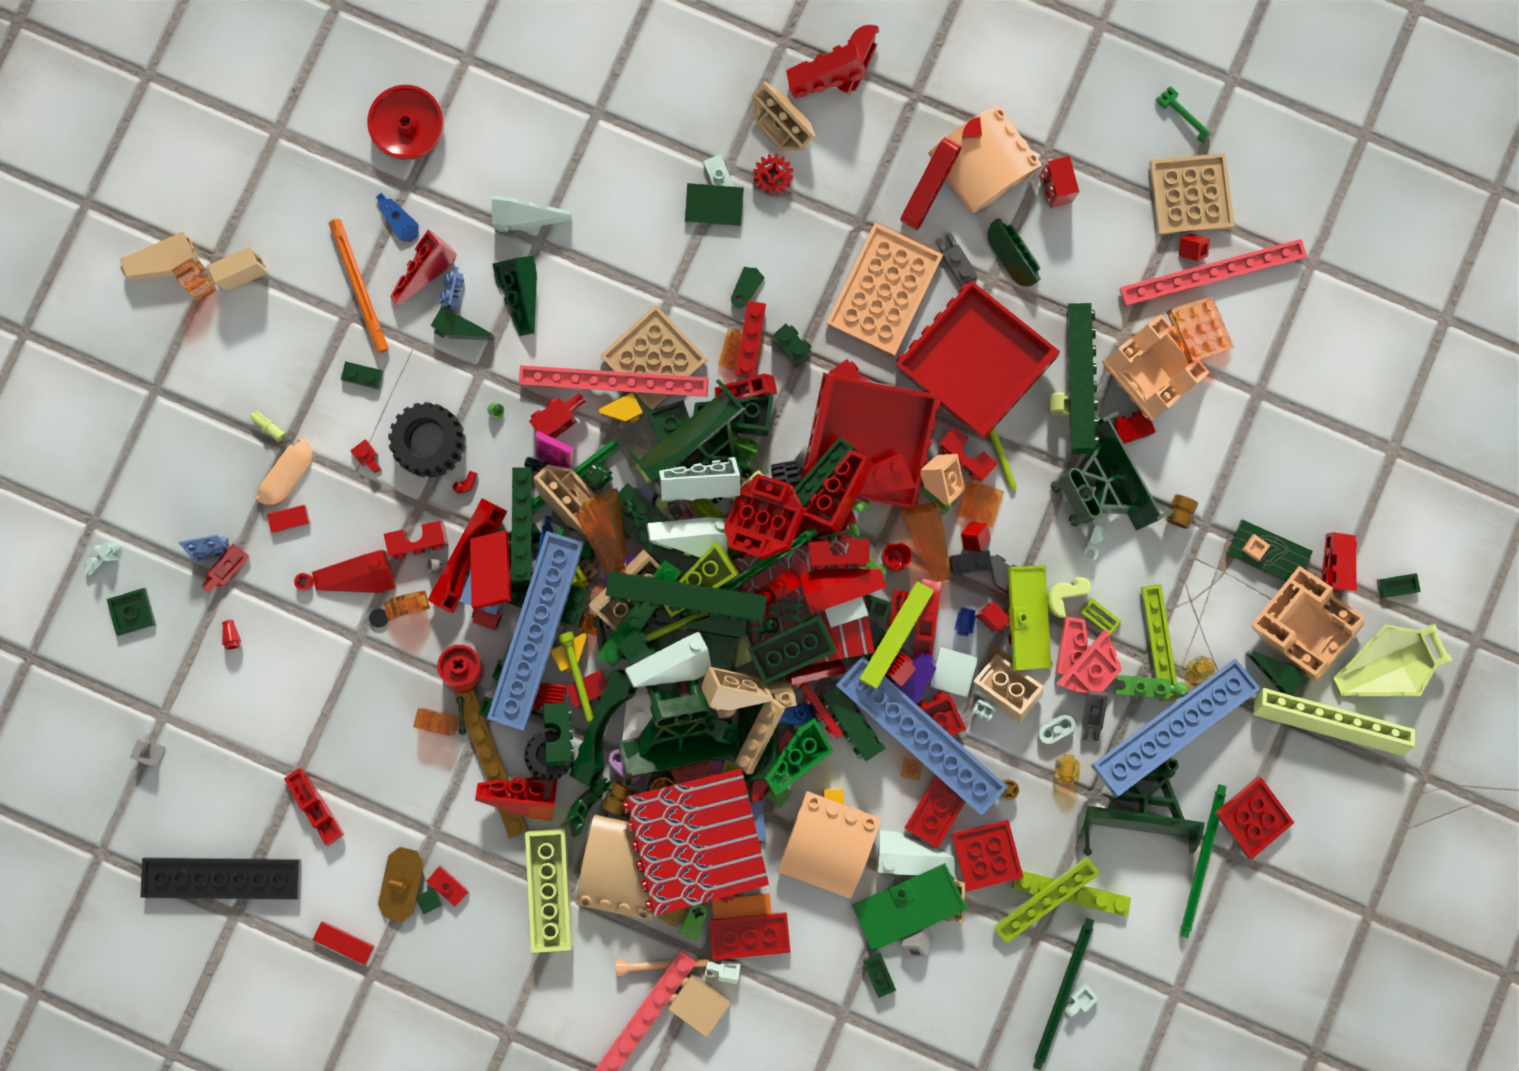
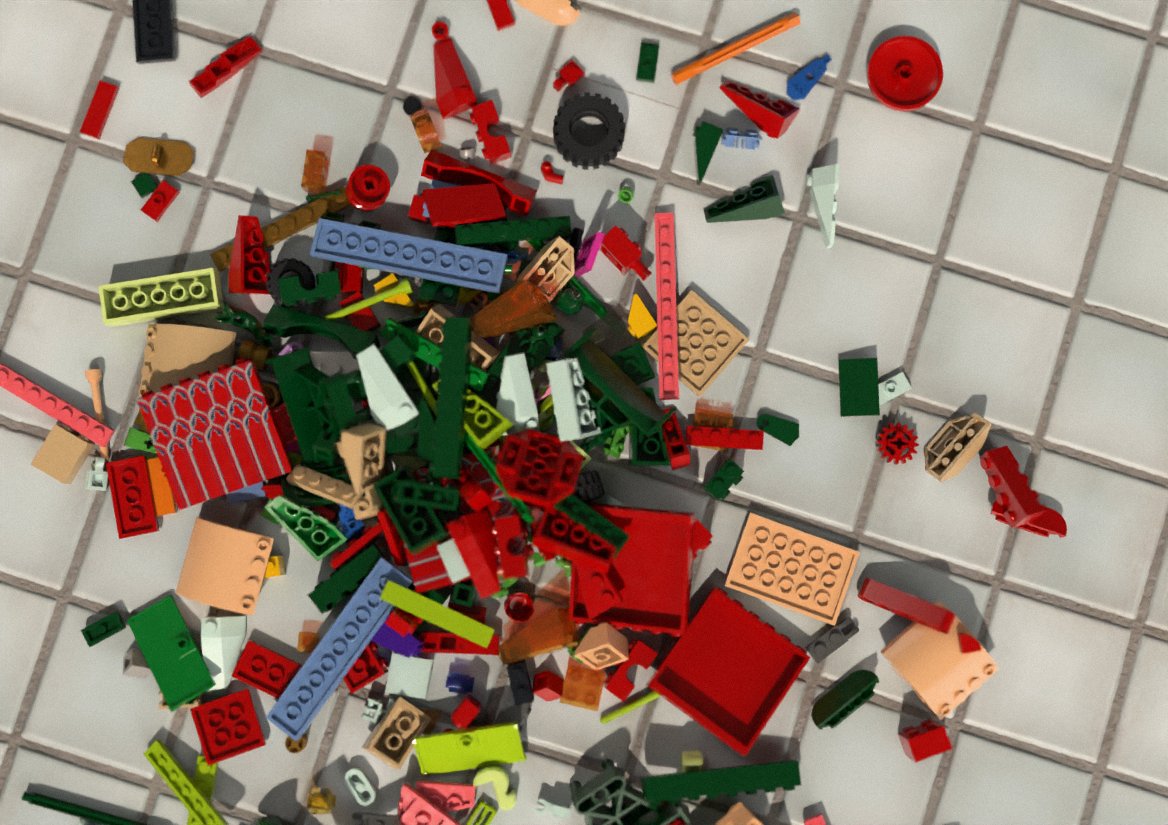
camera: 85 degrees right, 0 degrees up
(781, 632) = (424, 495): none -> dark green slope

